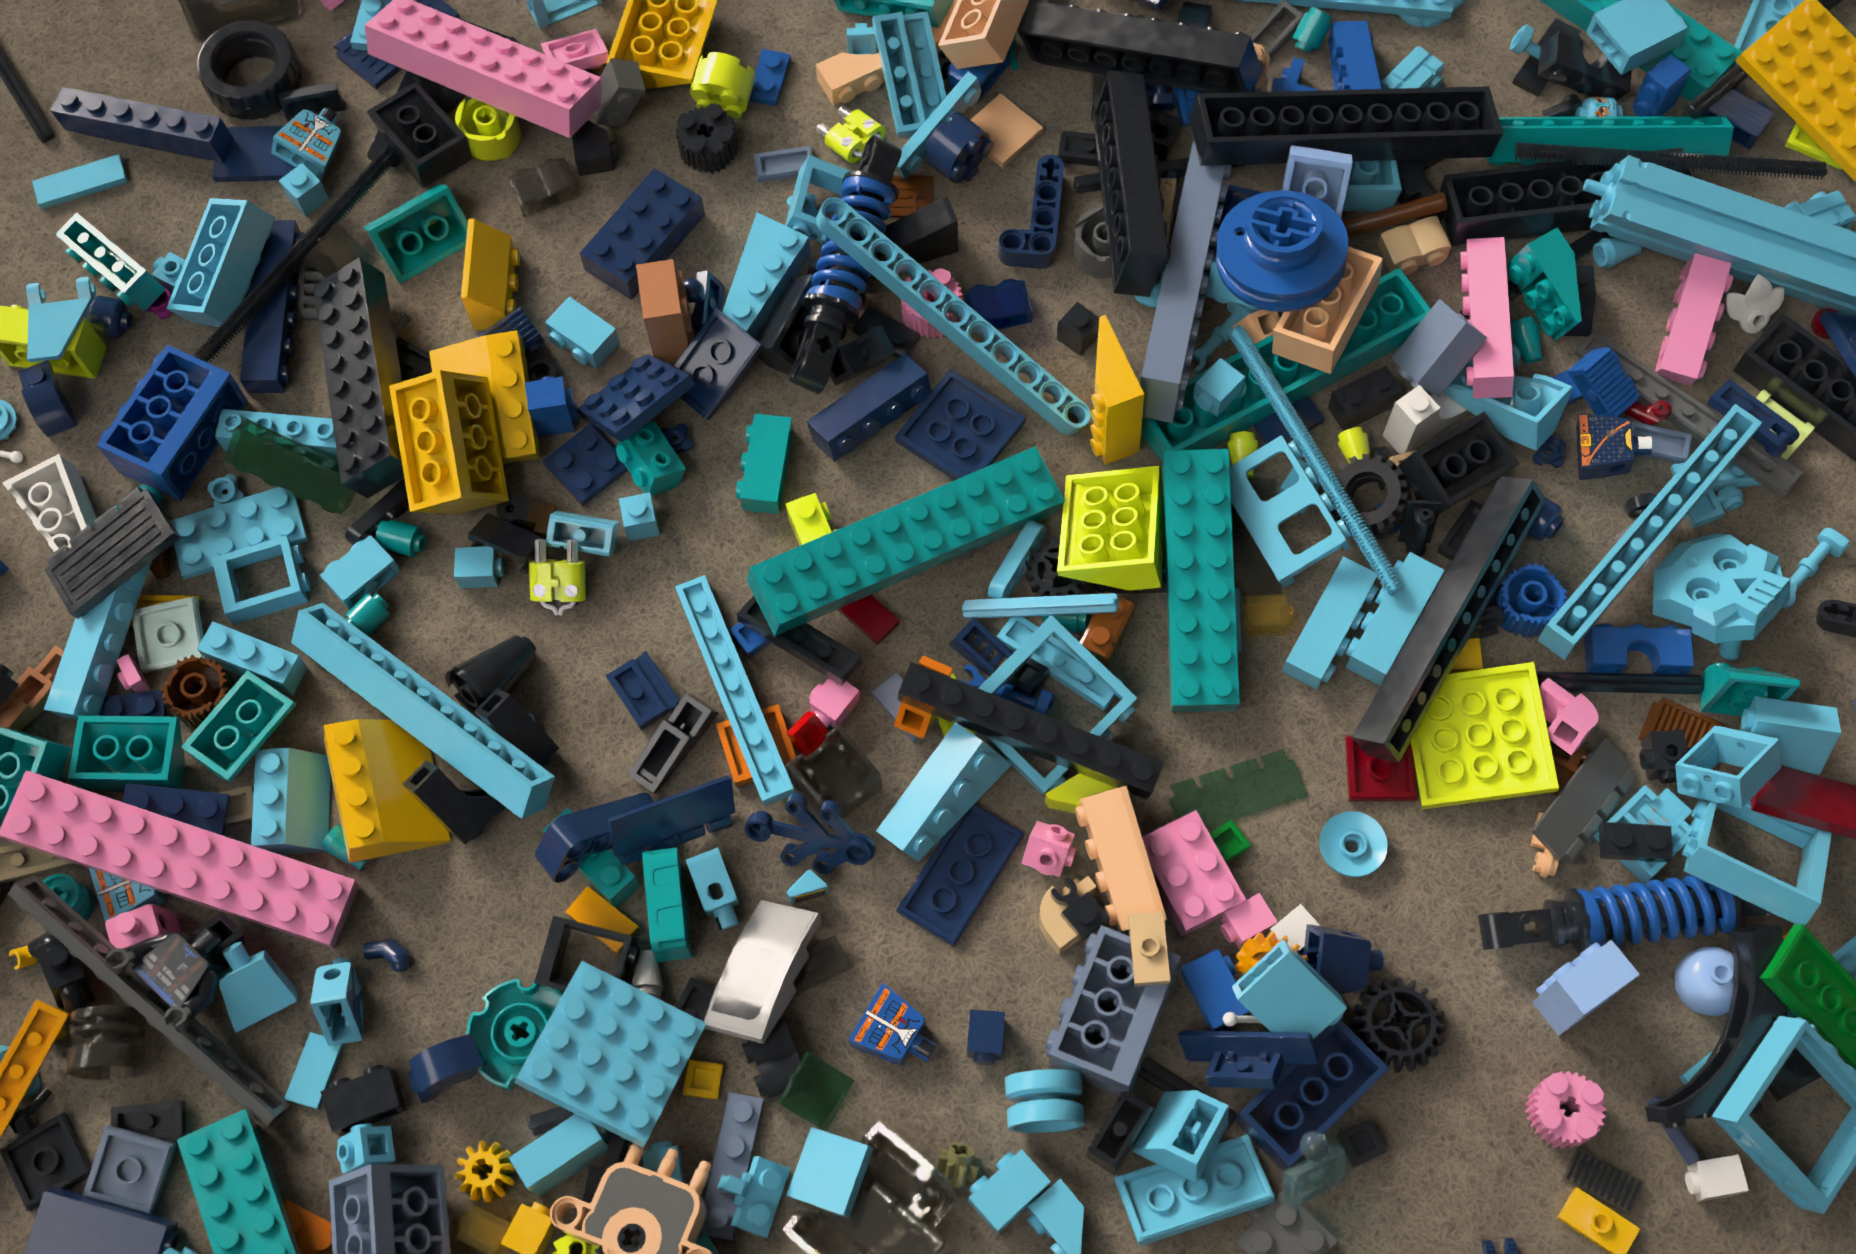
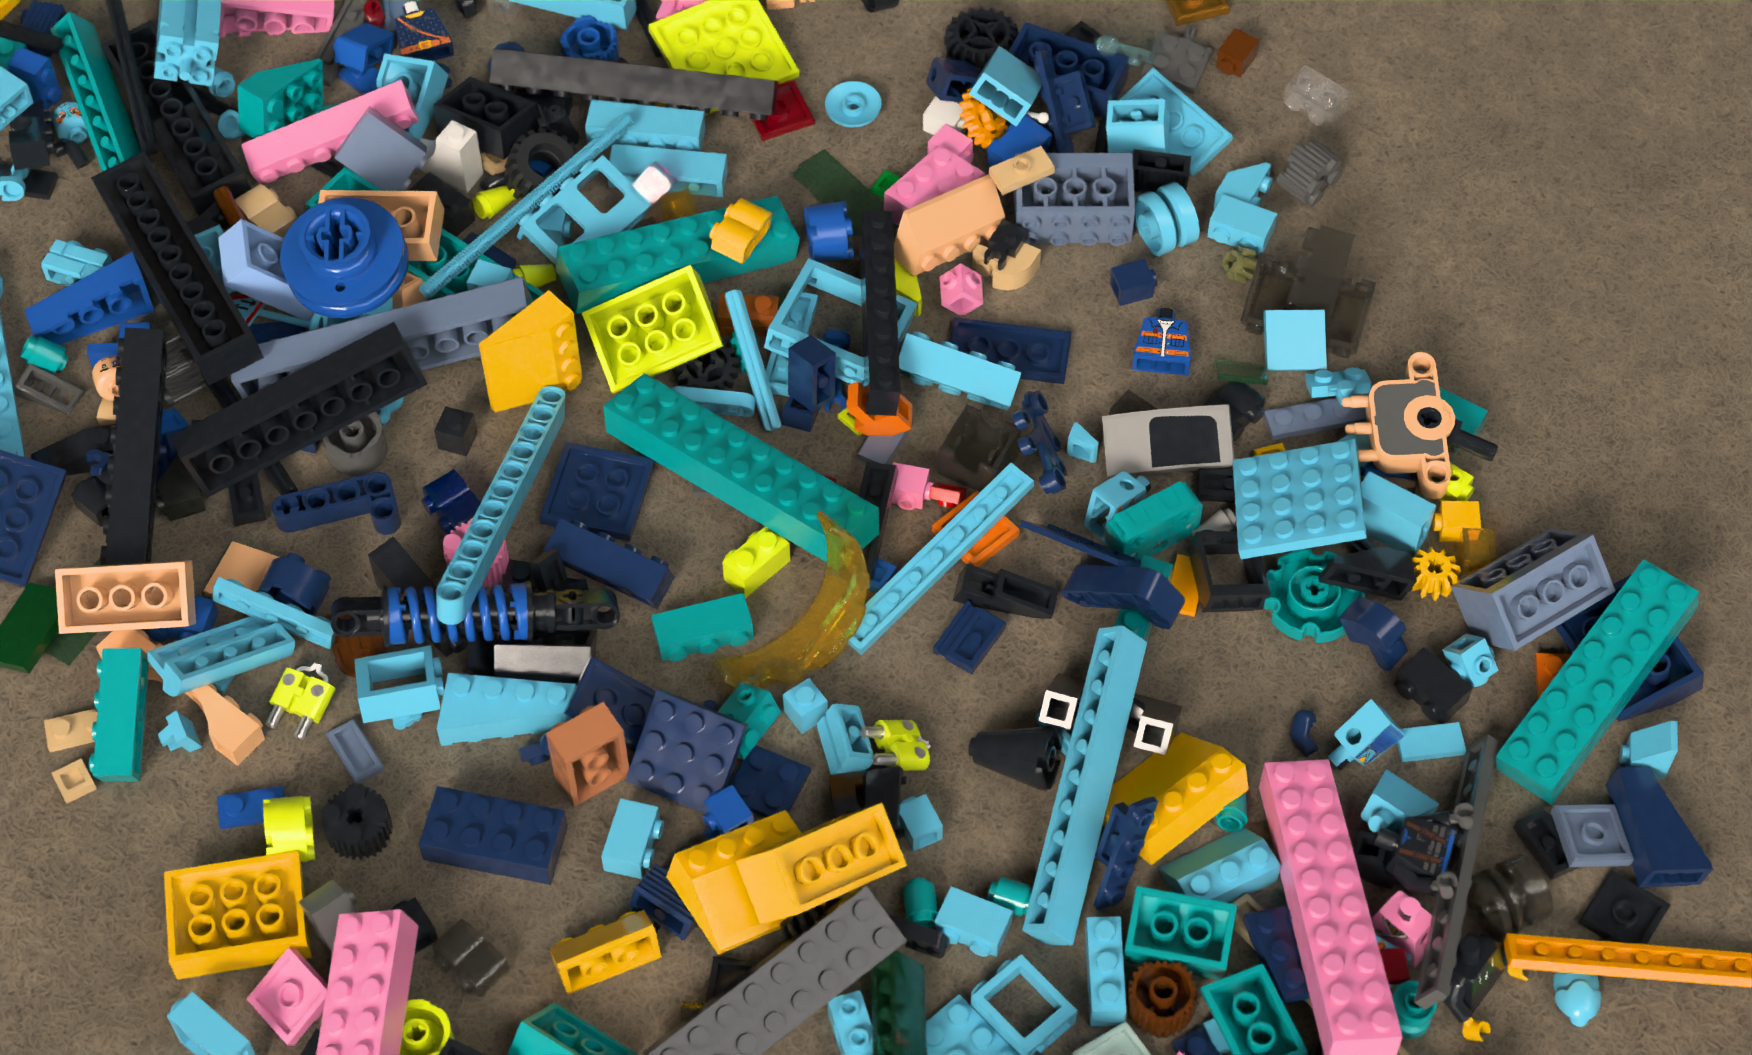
camera: 115 degrees left, 10 degrees down
(103, 892) = (1395, 965): none -> dark red tile
(342, 709) = (1120, 848): none -> dark blue bracket
(505, 1103) = (1373, 571): none -> black slope
(705, 550) = (822, 630): none -> clear yellow windscreen
(988, 643) = (811, 373): none -> dark blue brick
(1175, 739) = (828, 232): none -> blue brick
(1185, 631) = (740, 230): none -> yellow brick
(1302, 590) = (654, 183): none -> brick

